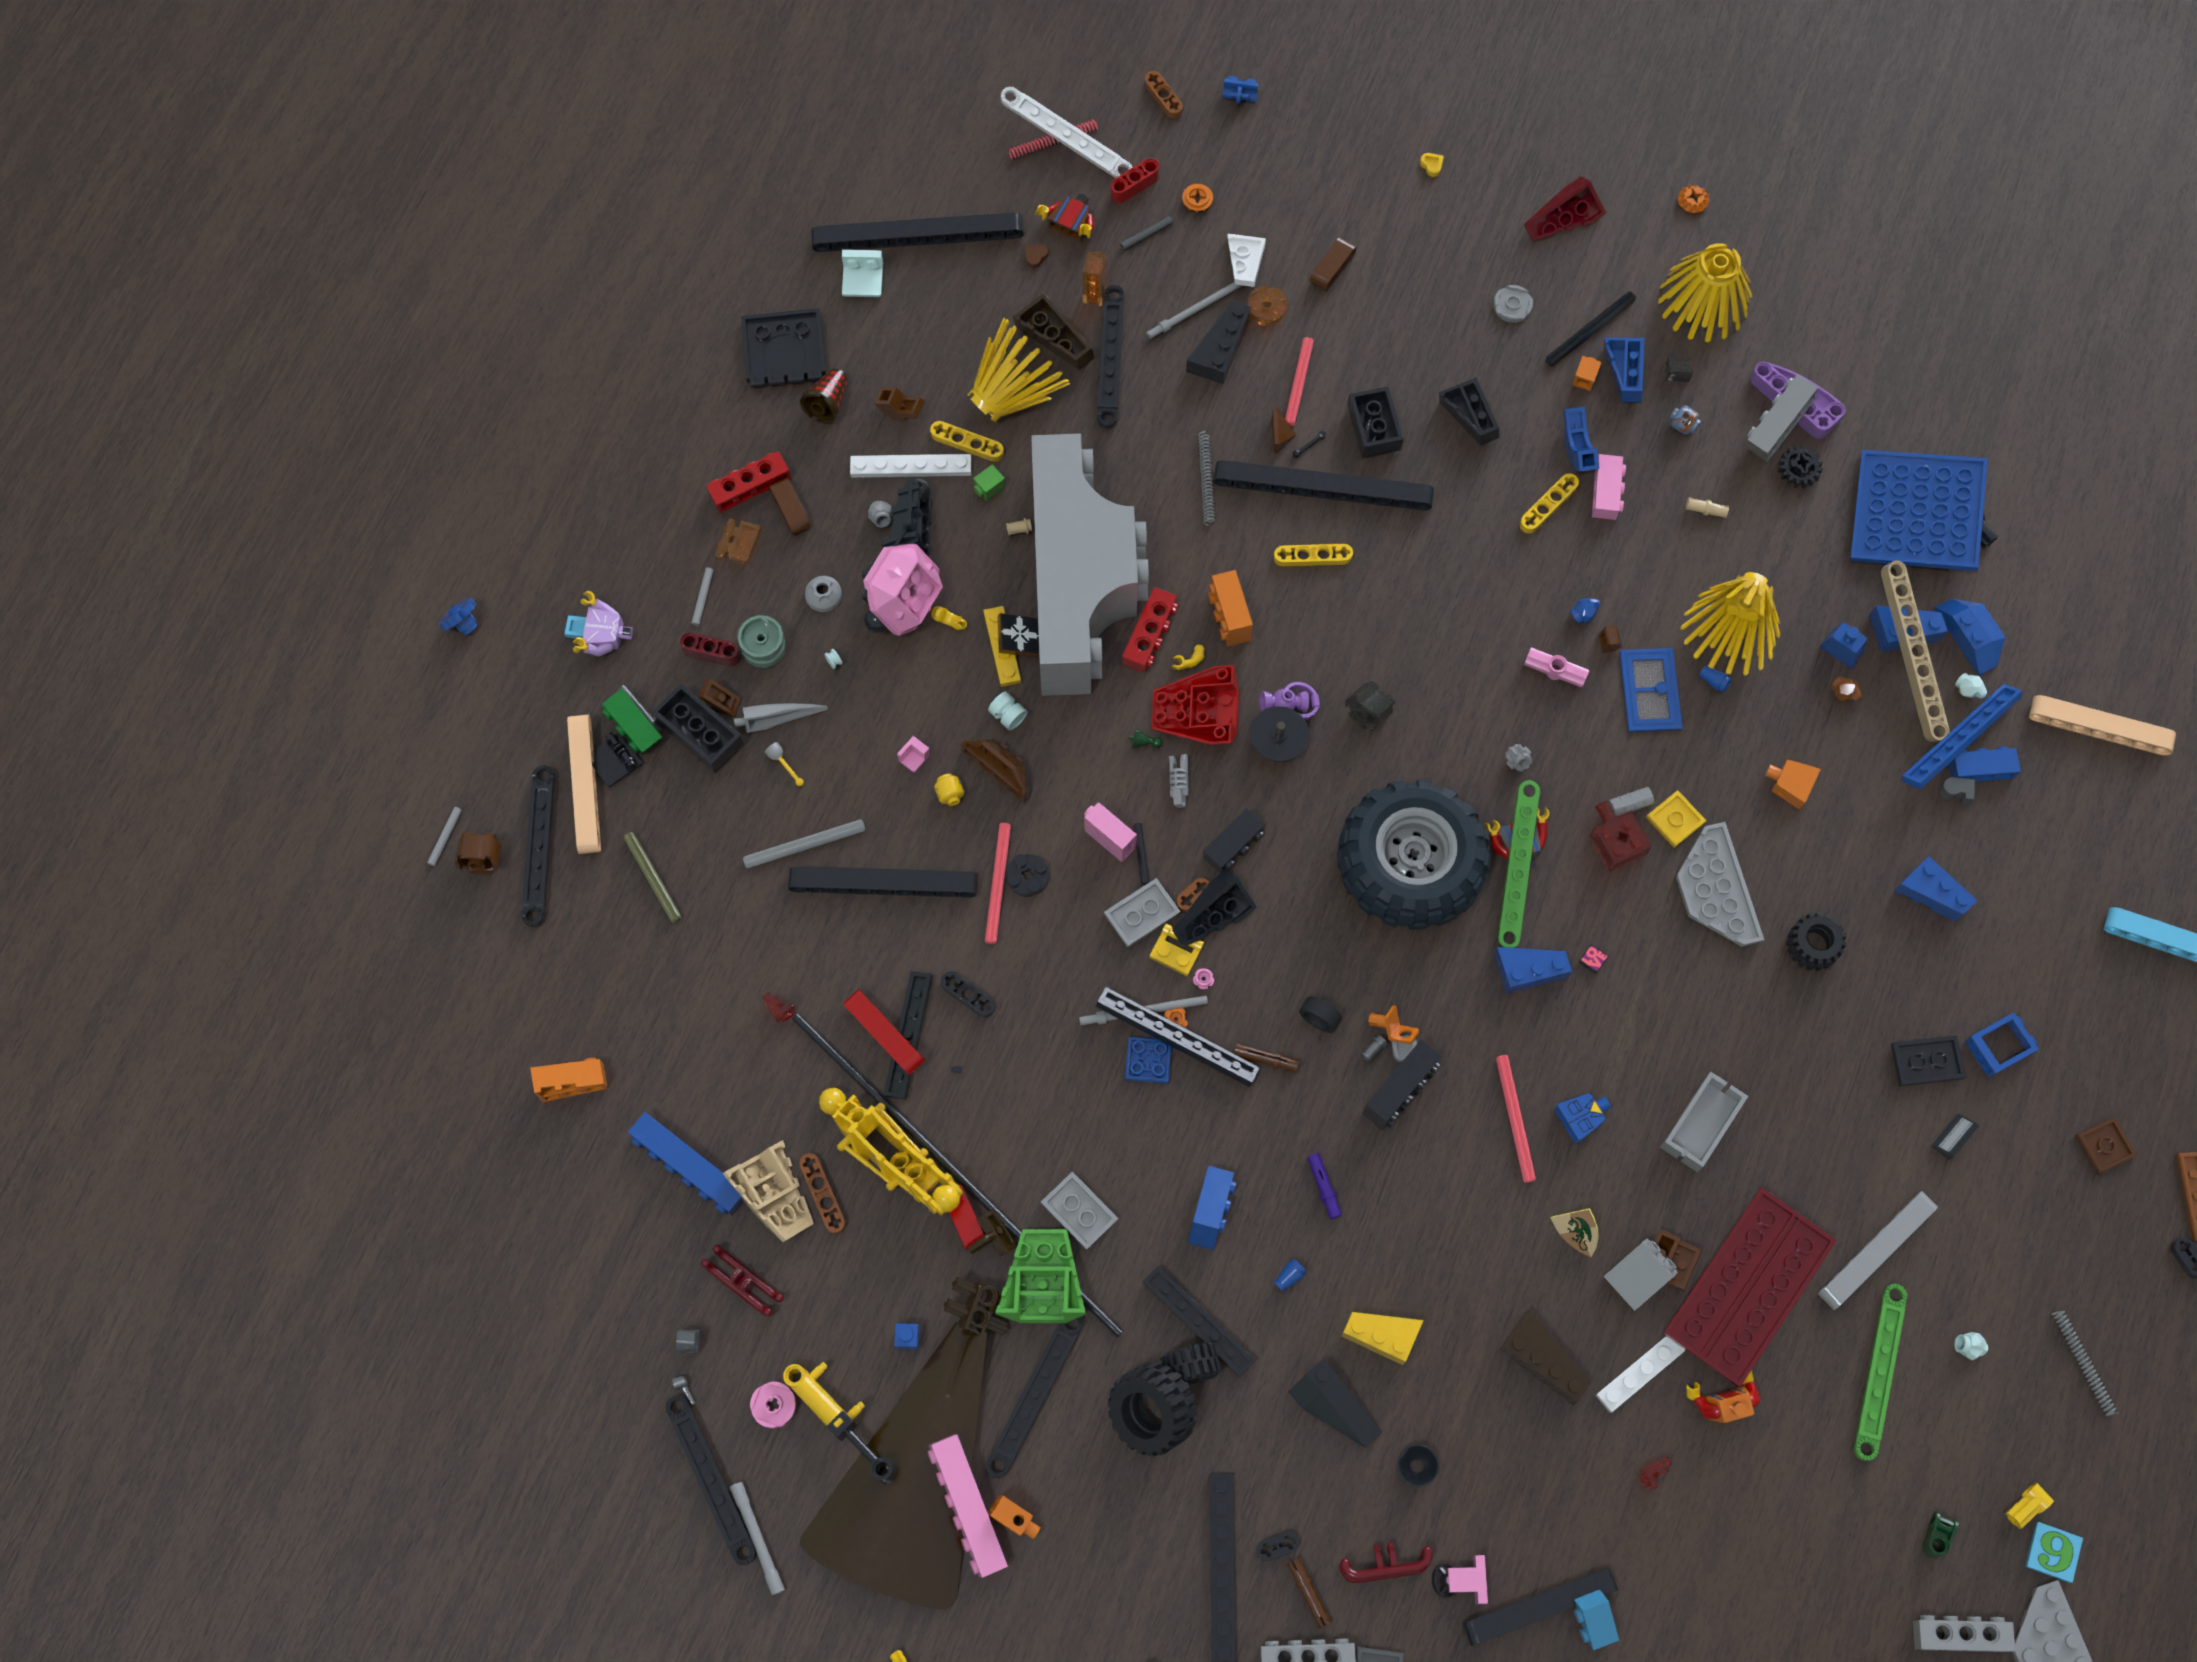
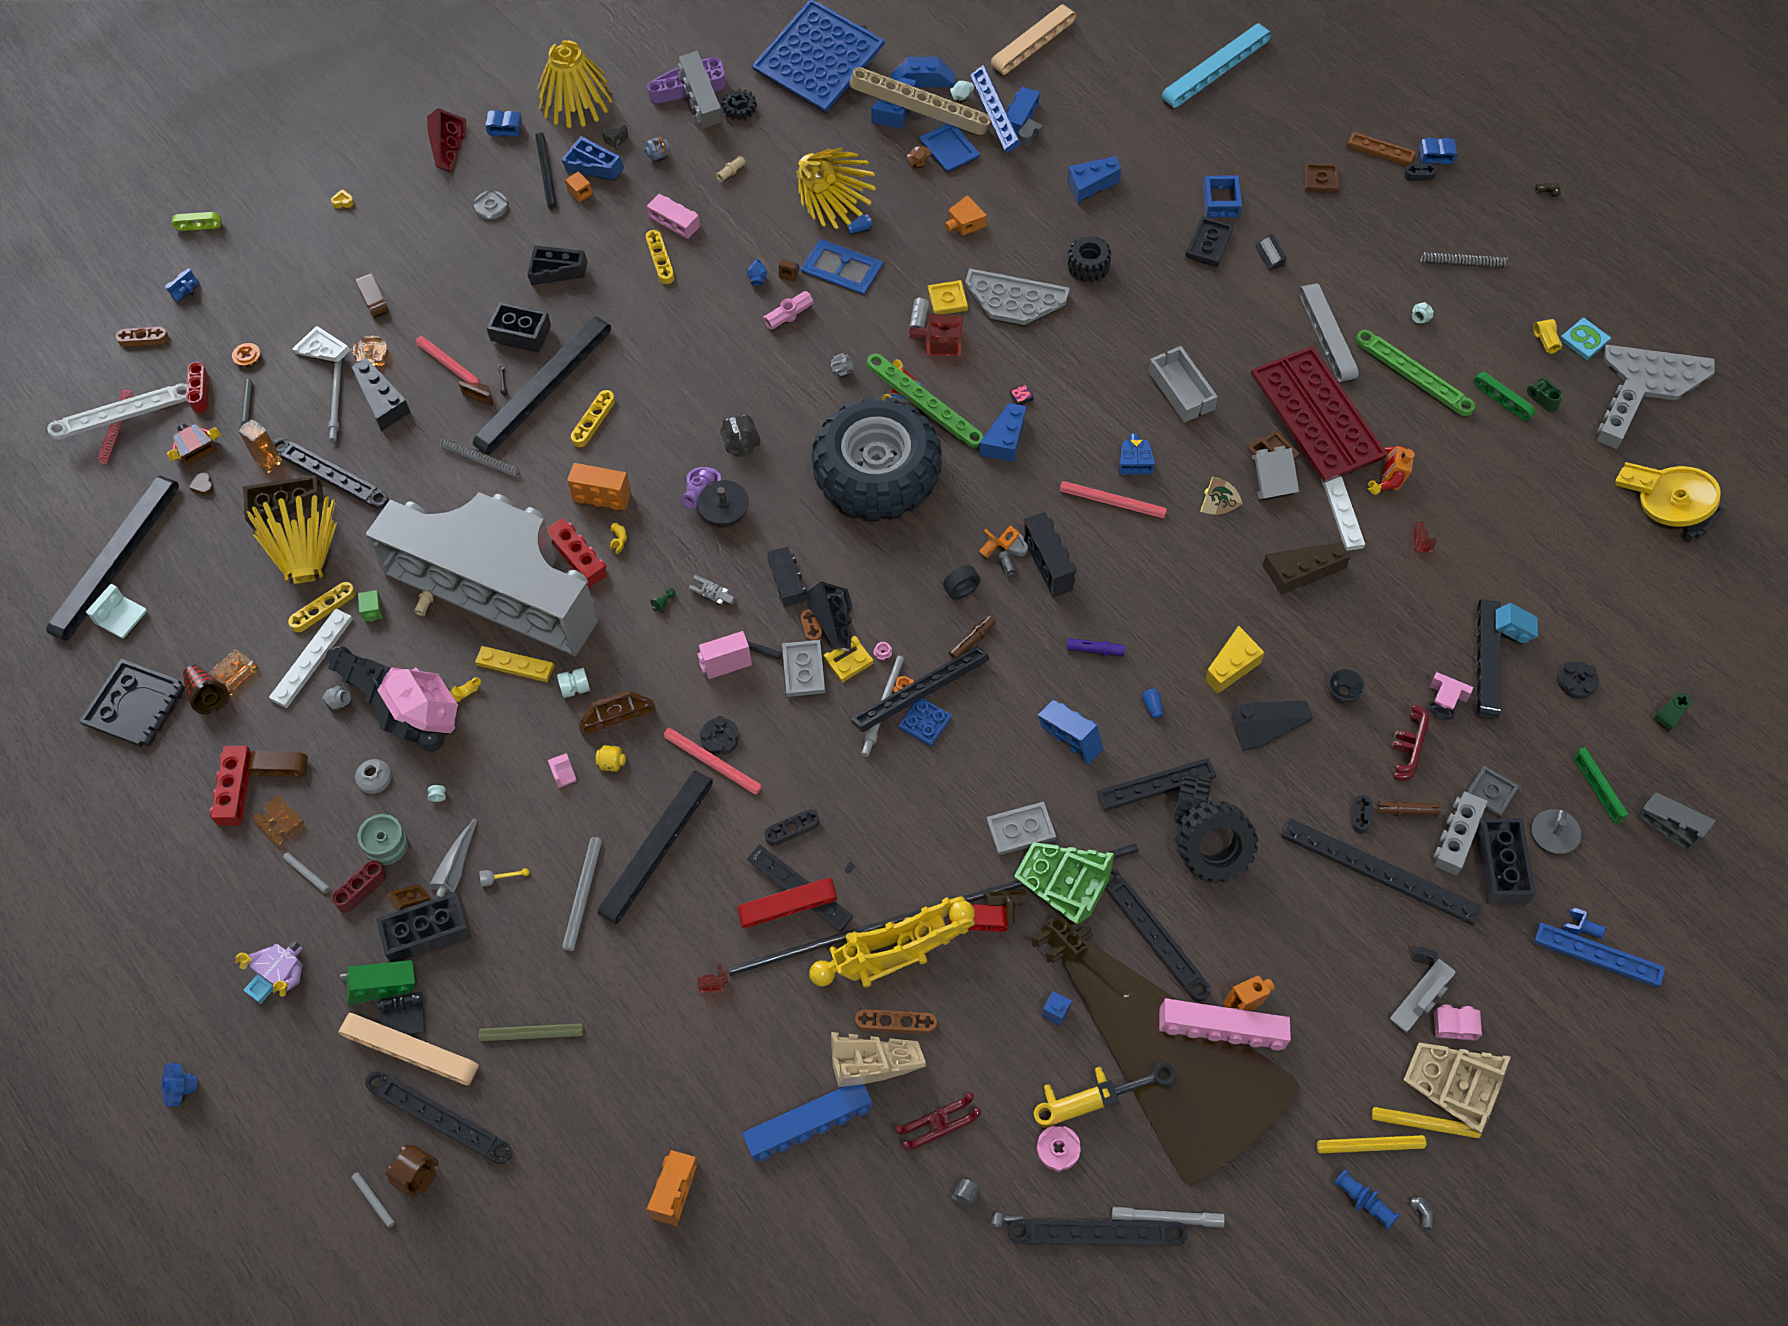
camera: 60 degrees left, 10 degrees down
(859, 403) = (230, 667): none -> clear orange plate
(898, 406) = (255, 640): reddish brown brick -> none
(1018, 635) = (515, 645): tile -> none
(1199, 706) = (662, 549): red wedge -> none
(1321, 52) = (185, 222): none -> lime beam
(1579, 449) = (628, 217): blue arch -> none
(1623, 252) = (503, 123): none -> blue brick
(1688, 203) = (498, 70): orange gear -> none
(1845, 644) = (885, 140): blue torso -> none
(1884, 715) = (949, 147): none -> blue piece
(1907, 1488) = (1488, 385): none -> green beam

